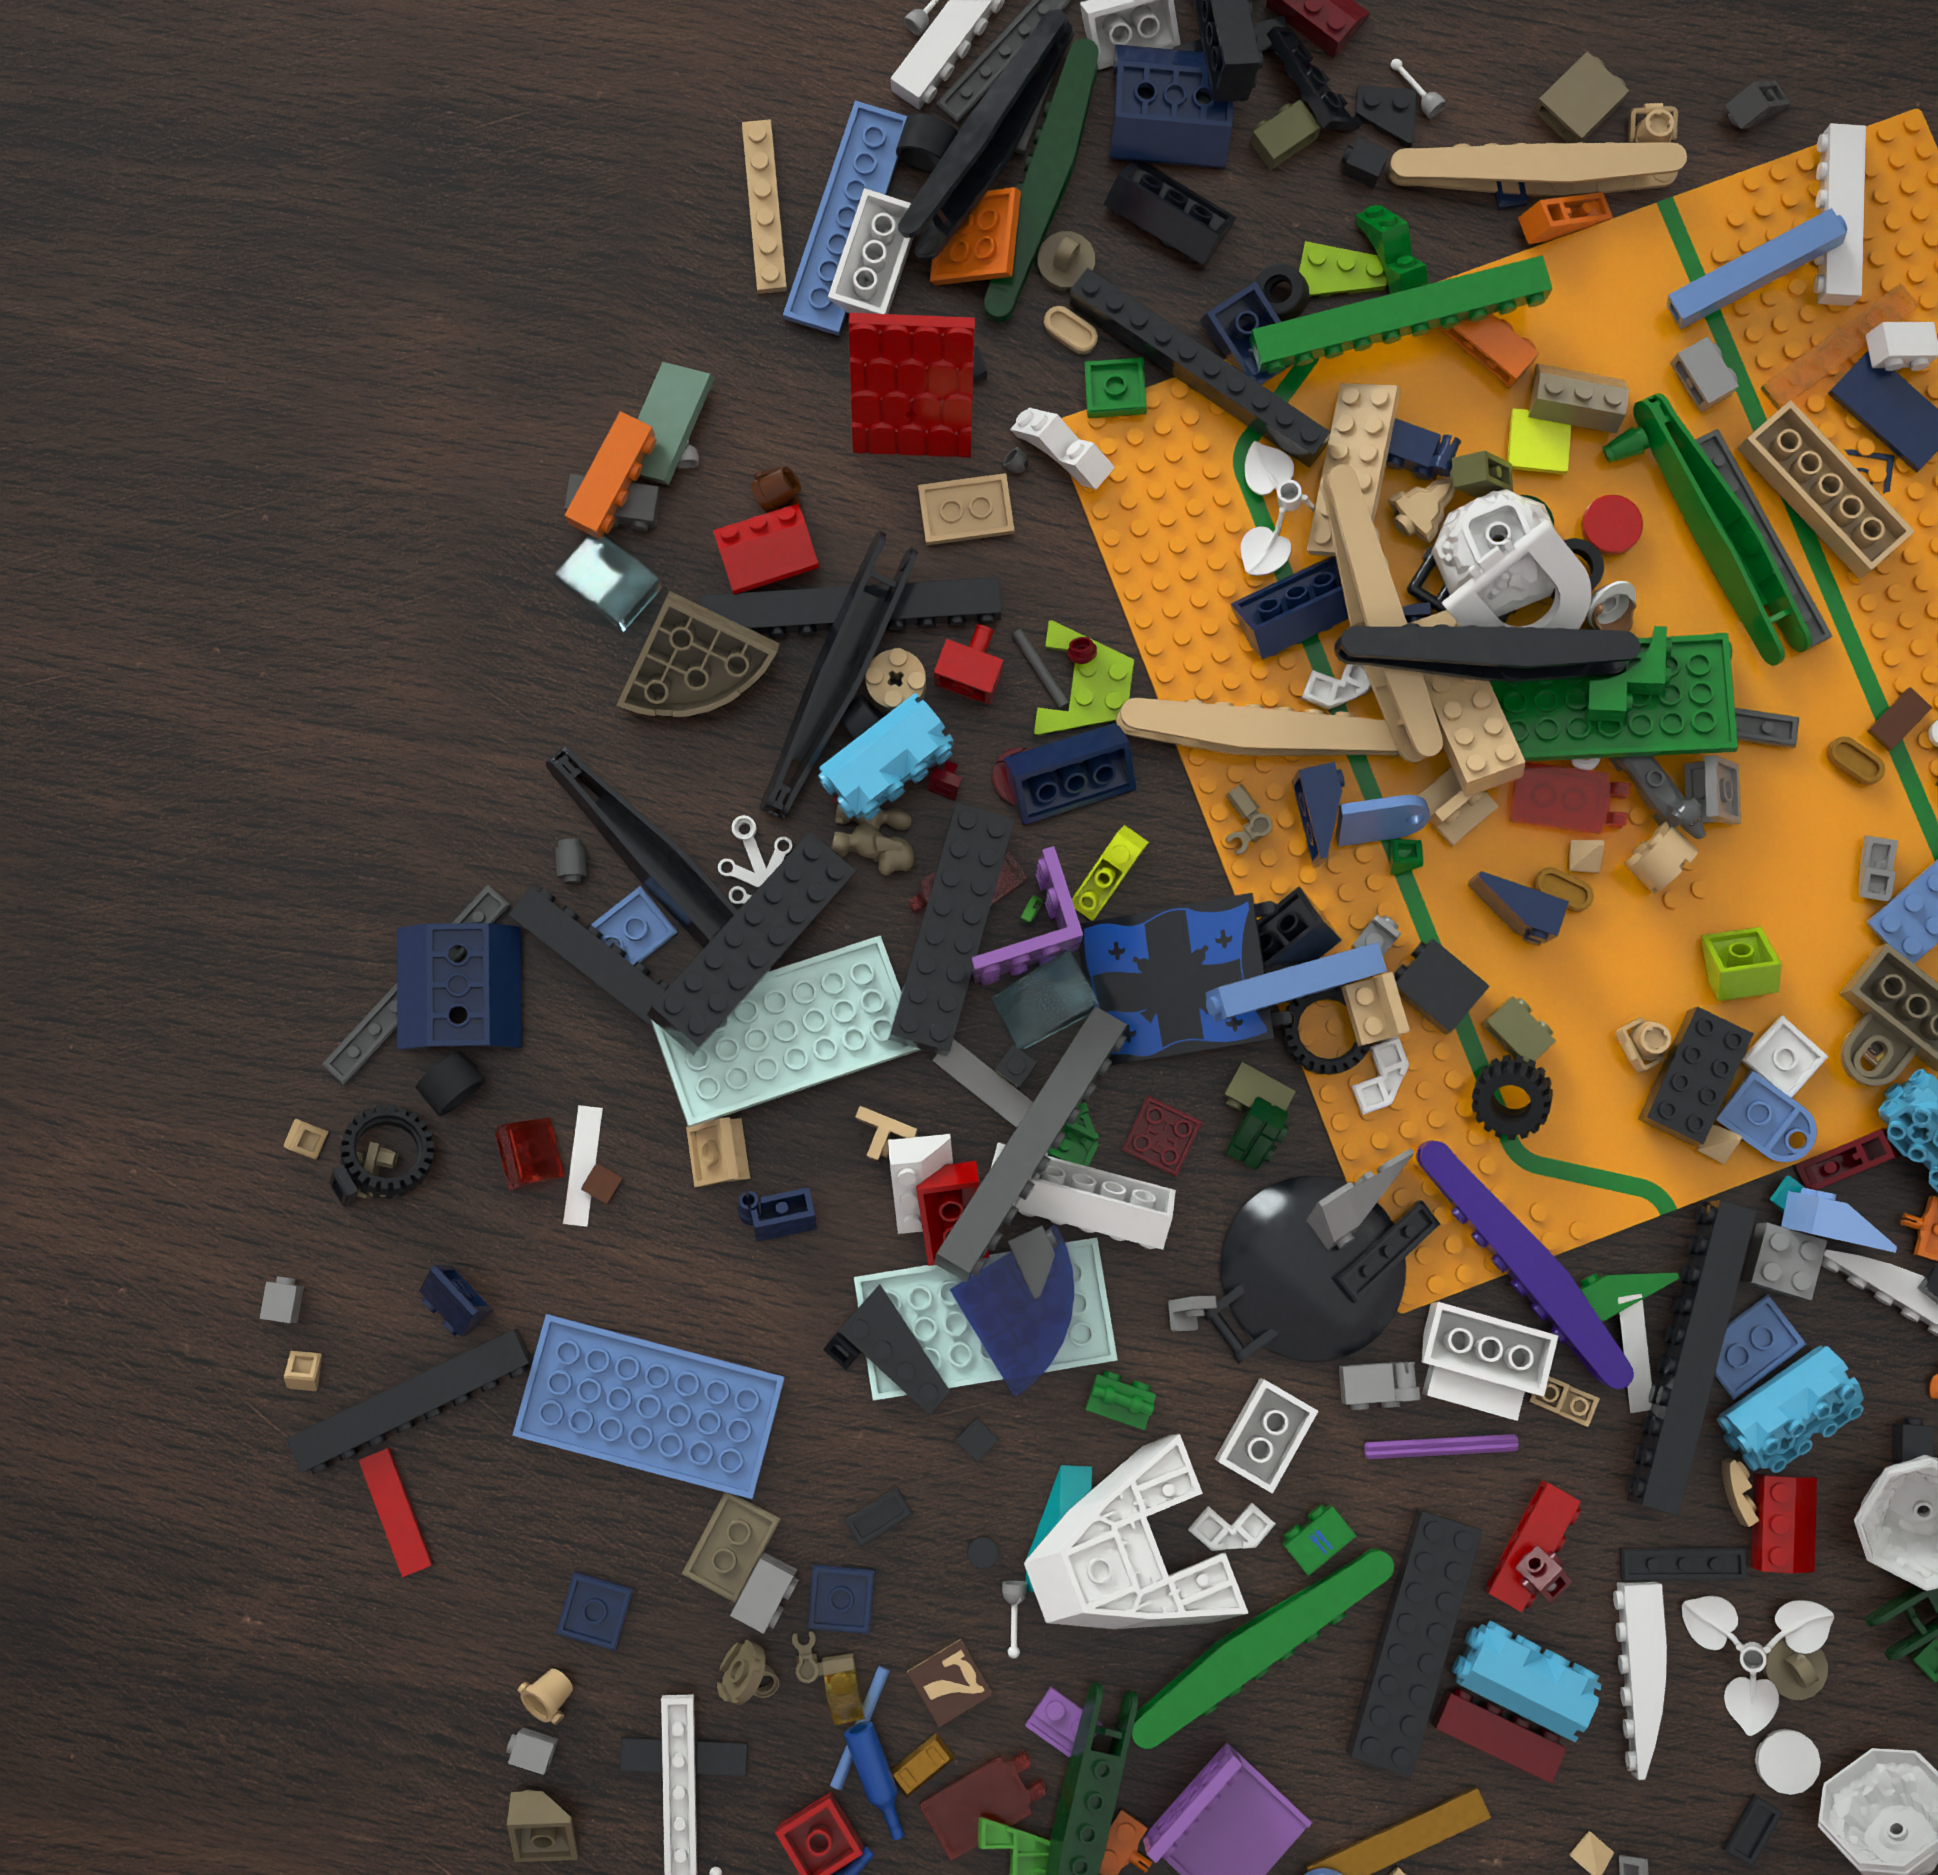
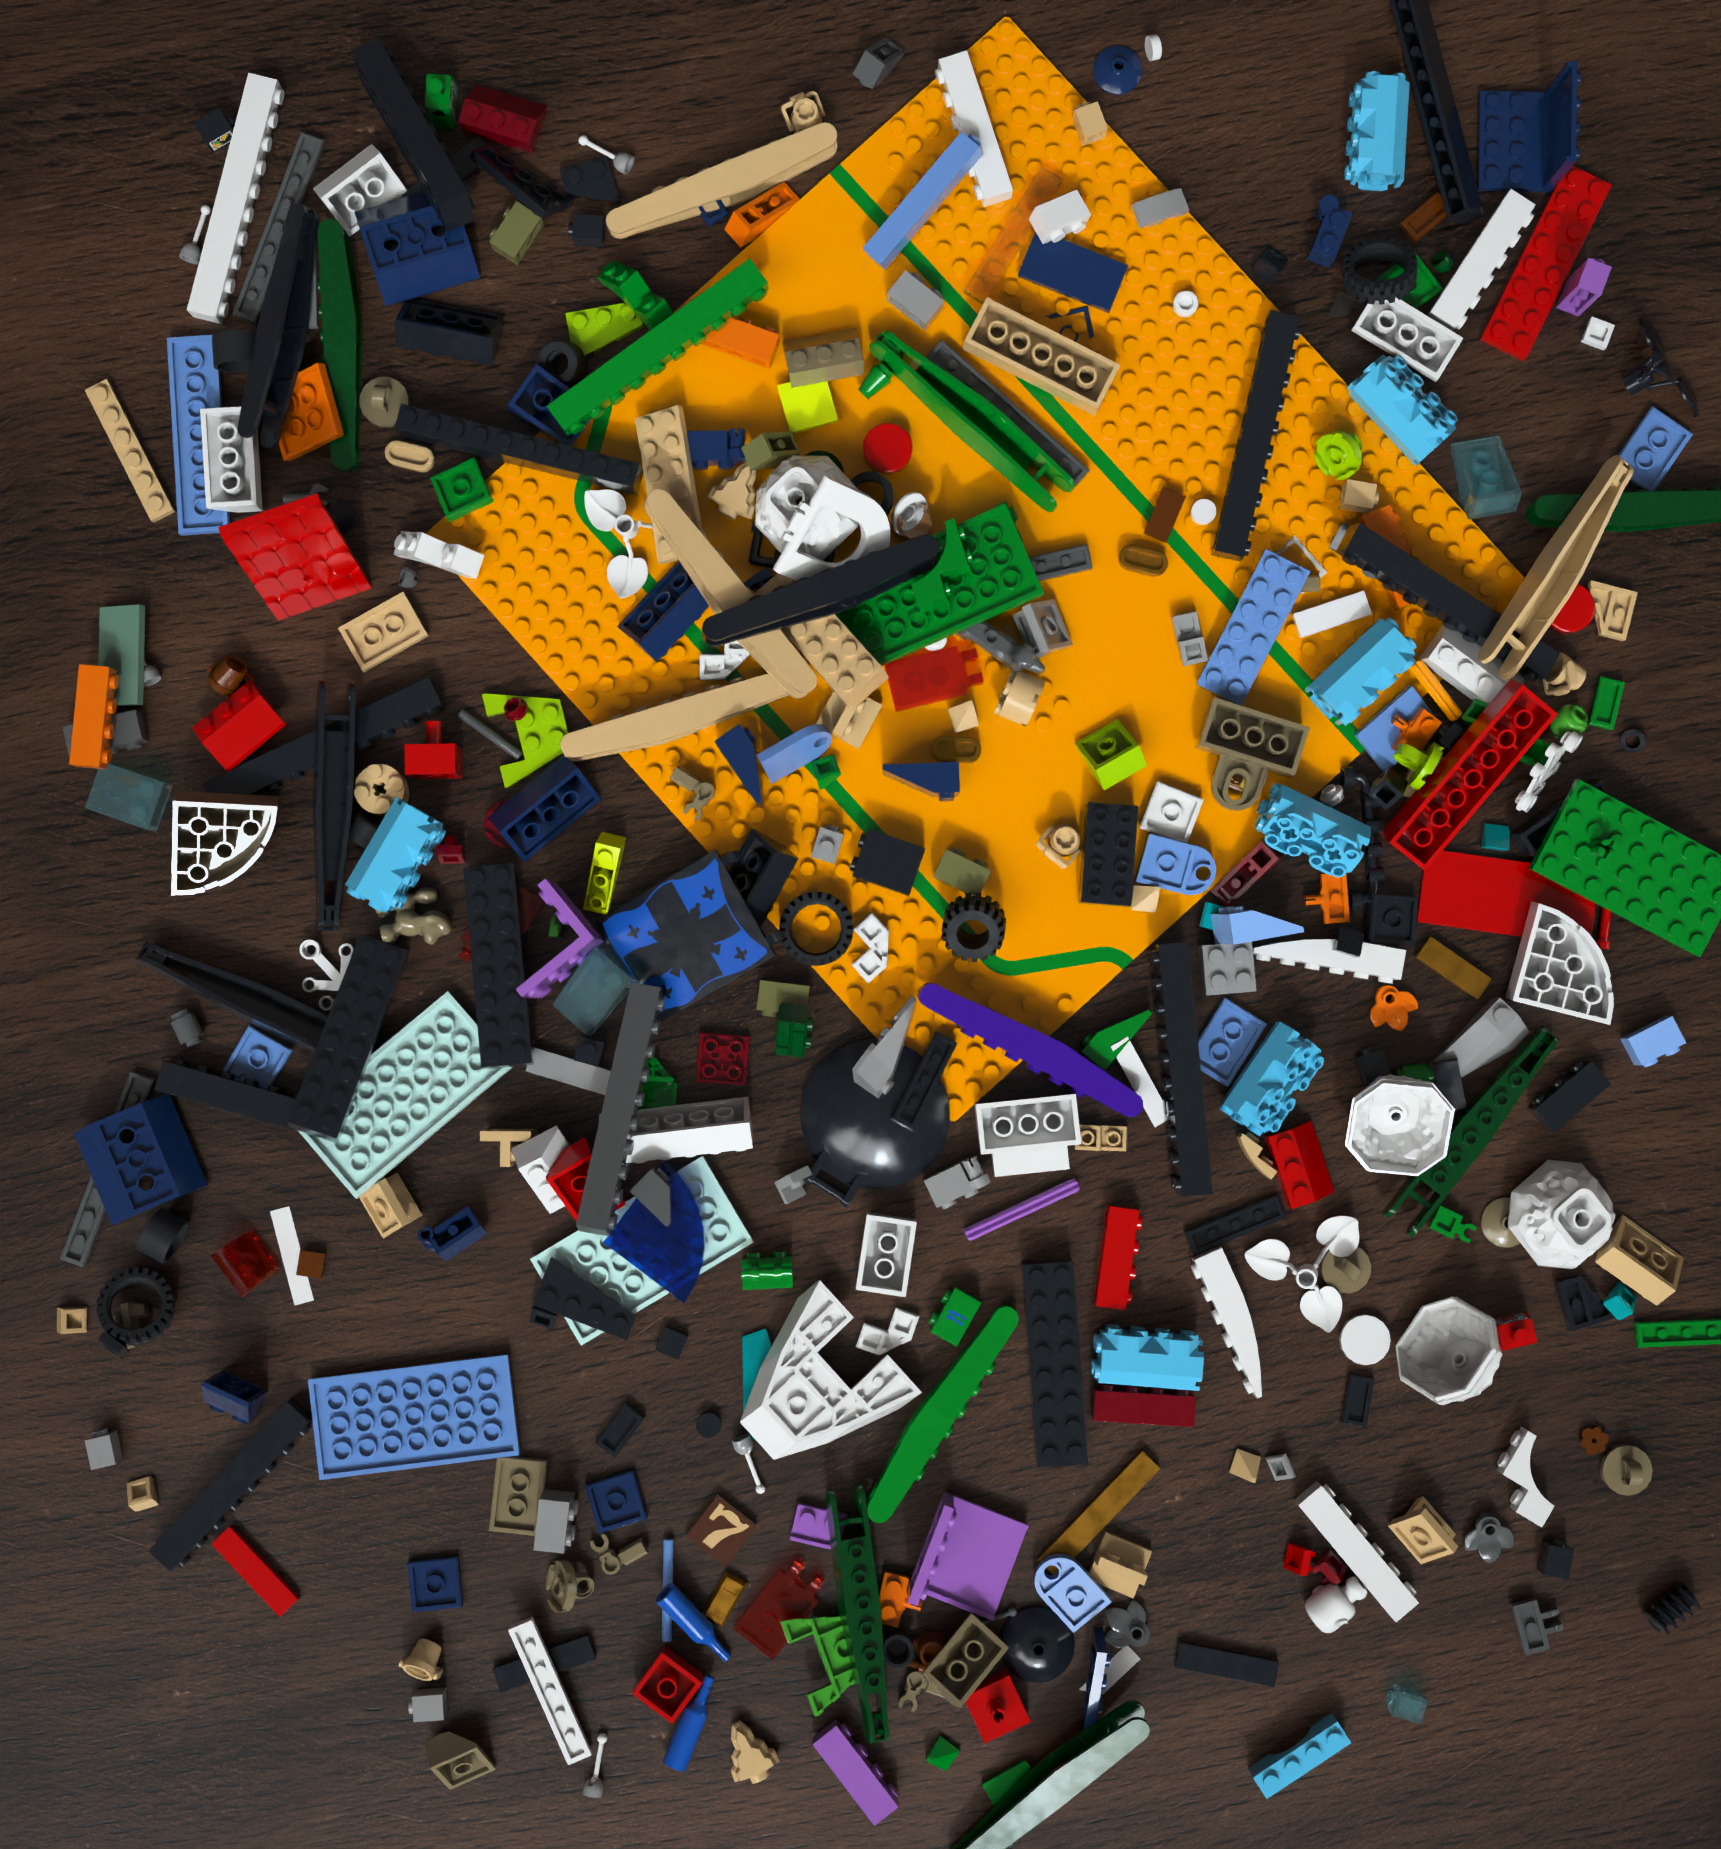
camera: 25 degrees left, 5 degrees up
(844, 1697) = (645, 1573): clear yellow brick -> none
(1295, 982) = (773, 906): medium blue brick -> none
(1375, 1009) = (844, 902): tan bracket -> none
(1543, 1574) = (1128, 1277): dark red brick -> none
(1581, 99) = (739, 113): dark tan brick -> none

